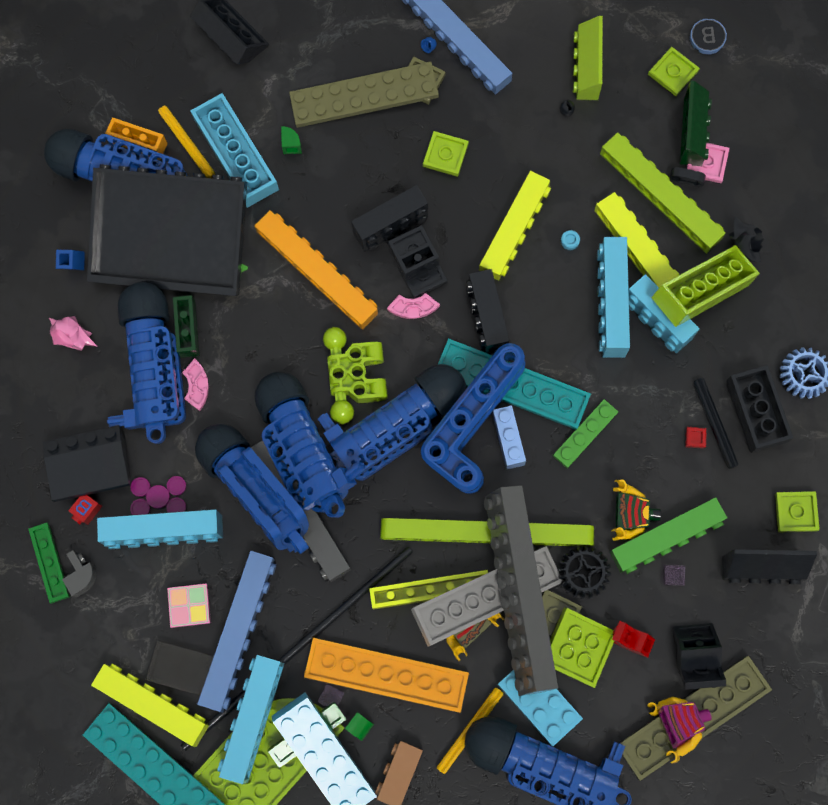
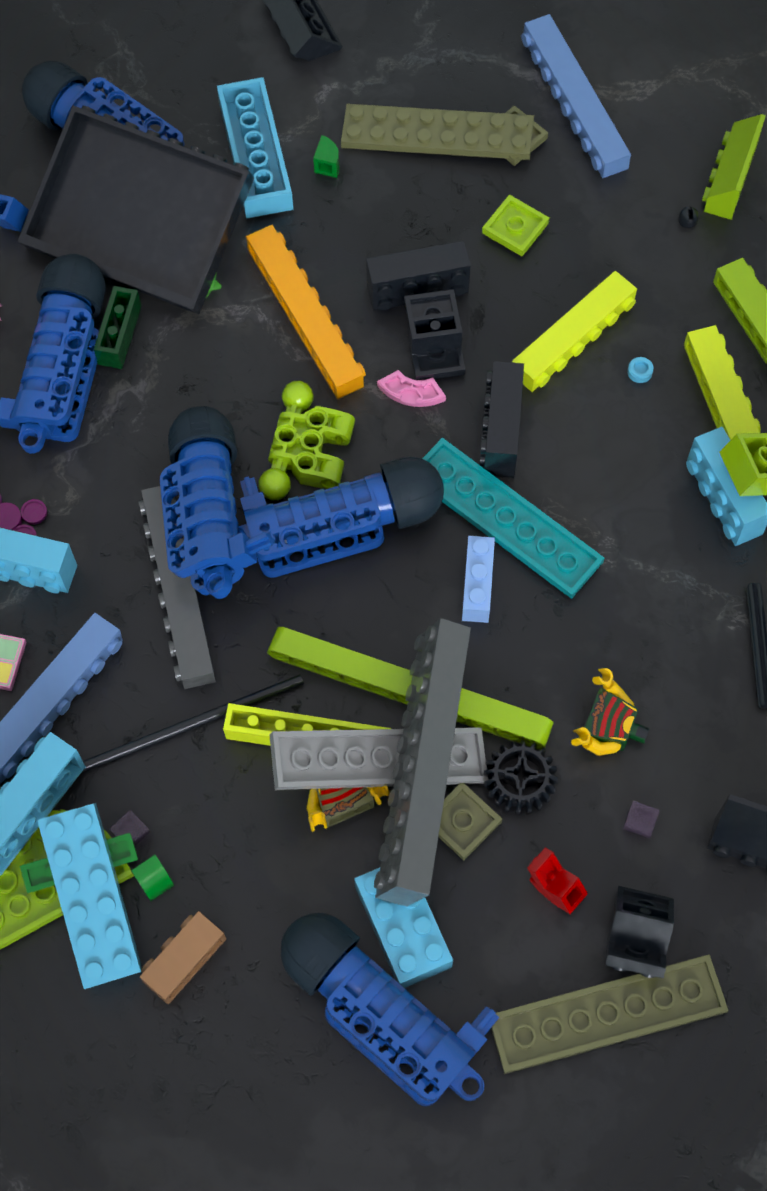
camera: 15 degrees right, 10 degrees down
(137, 135) = (144, 95): light orange brick -> none
(186, 141) = (198, 116): yellow axle -> none
(198, 384) = (106, 403): bright pink tile -> none
(229, 457) = (138, 557): blue piece -> none
(386, 675) = (213, 825): light orange plate -> none
(425, 43) = (536, 96): blue hinge -> none
(459, 744) = (273, 948): yellow axle -> none
(474, 408) = (444, 525): blue beam -> none
(580, 647) = (481, 869): lime plate -> none
(585, 434) = (581, 607): bright green plate -> none
(614, 297) = (671, 448): medium azure brick -> none
(668, 535) = (649, 765): bright green brick -> none
(682, 723) = (586, 1011): torso -> none
(695, 437) = (727, 655): red tile -> none

